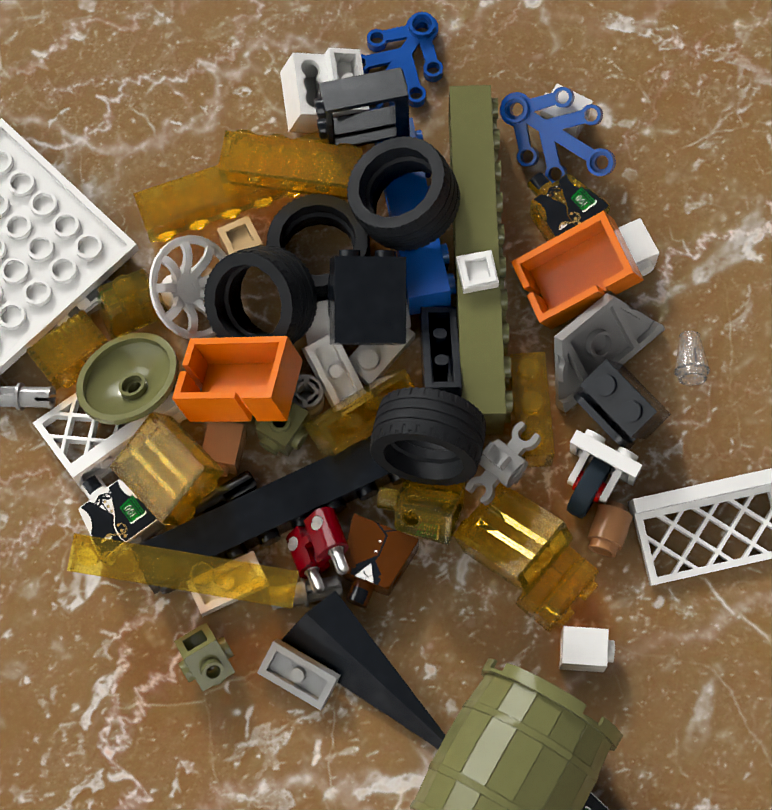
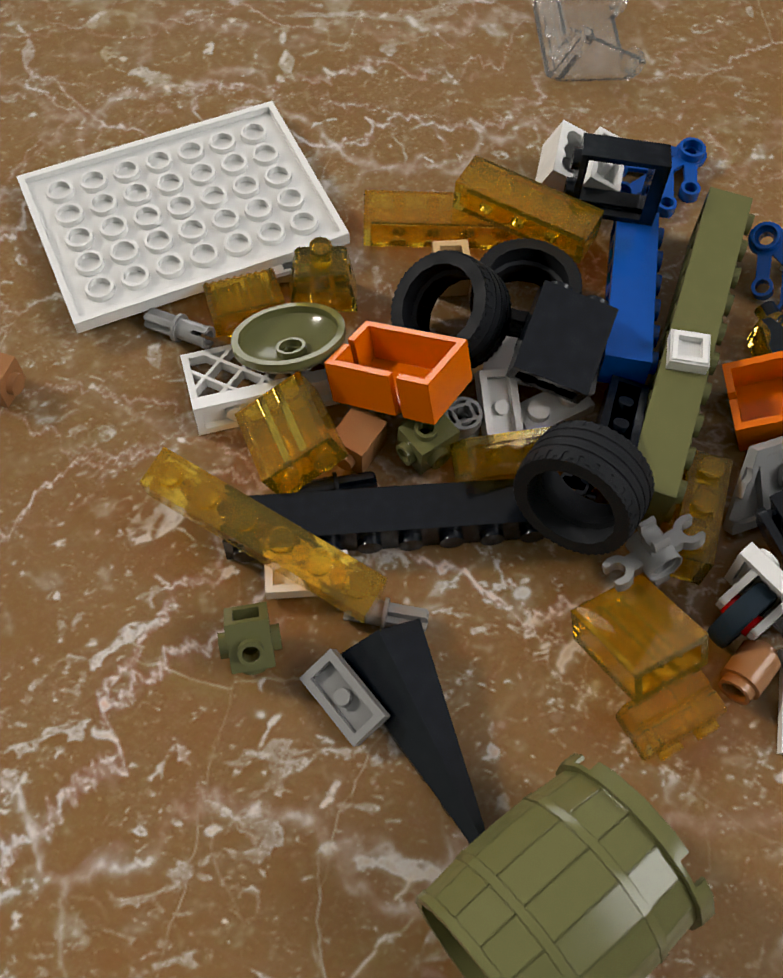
camera: 15 degrees right, 10 degrees down
(116, 512) = (225, 457): black torso -> none
(184, 286) = (376, 284): white wheel -> none
(316, 545) = (418, 565): dark red piece -> none
(375, 559) = (475, 606): reddish brown torso -> none
(383, 165) = (634, 228): black tyre -> none
(425, 509) = (550, 571): clear yellow torso -> none
(585, 649) = (684, 795): white brick -> none

